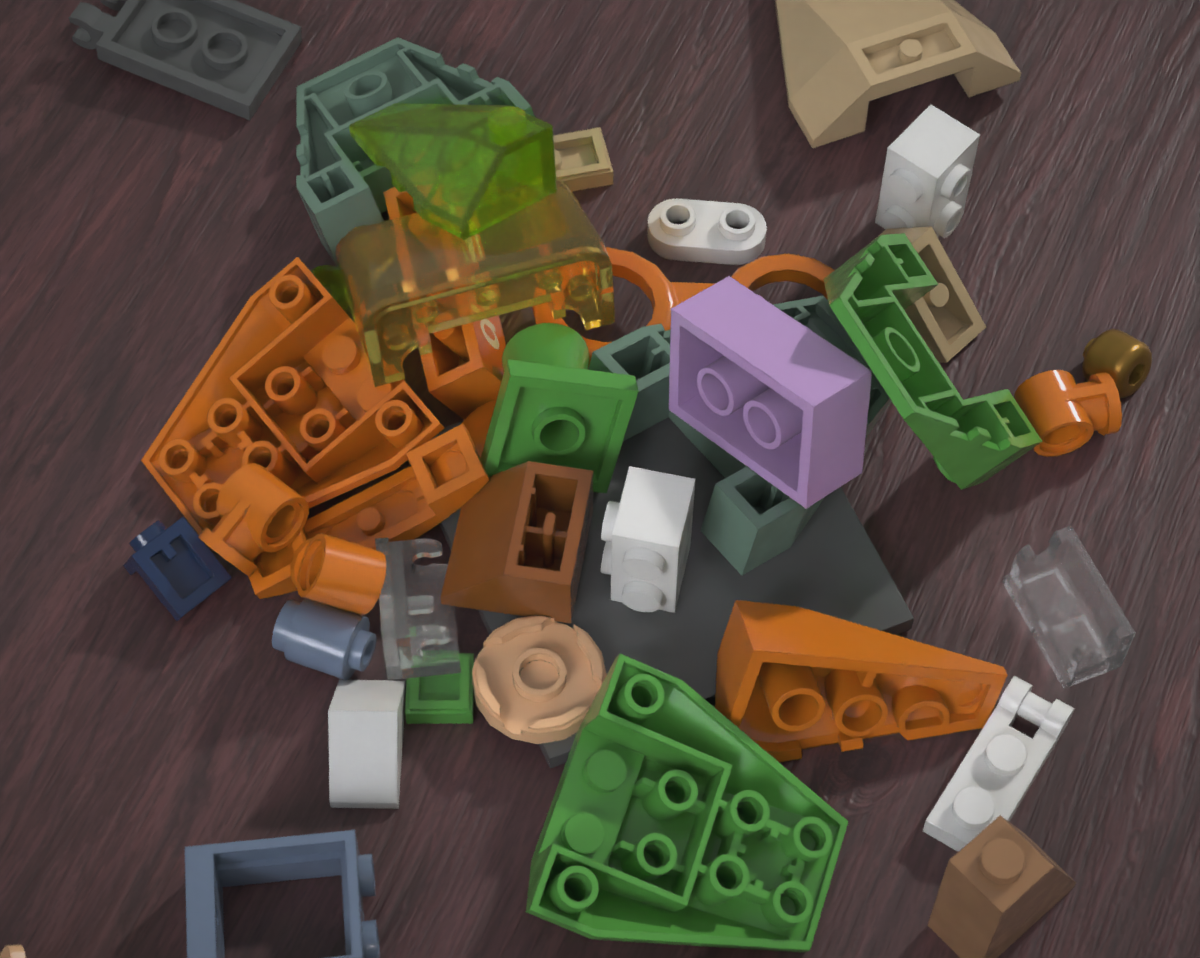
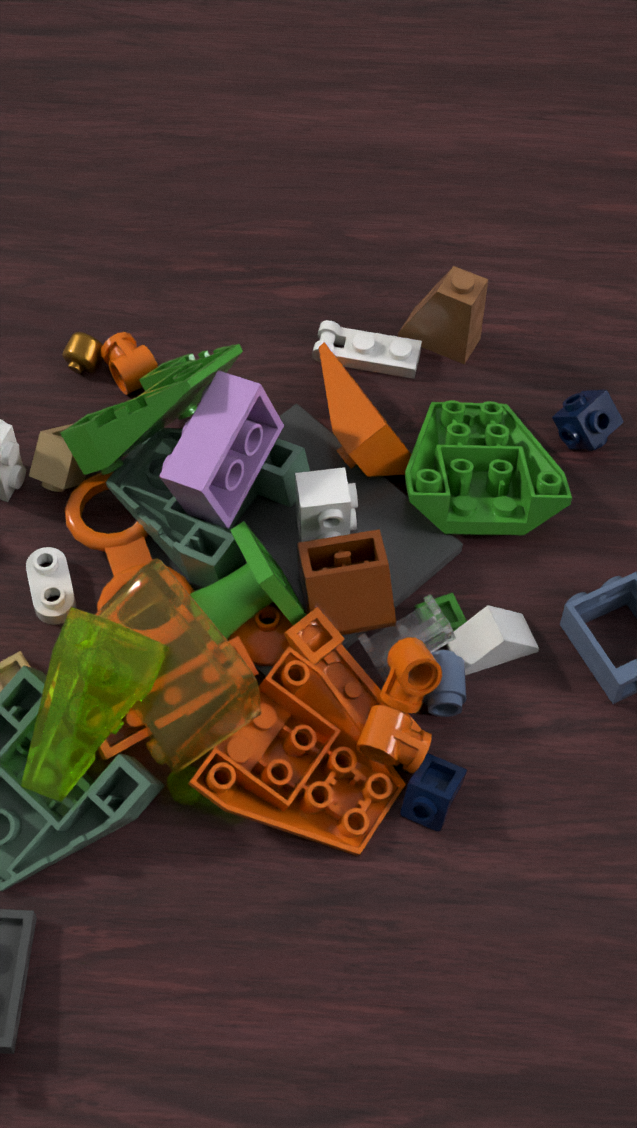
camera: 110 degrees left, 0 degrees up
(536, 700) = (413, 571): light nougat tile -> none
(1069, 609) = (263, 335): clear hinge -> none

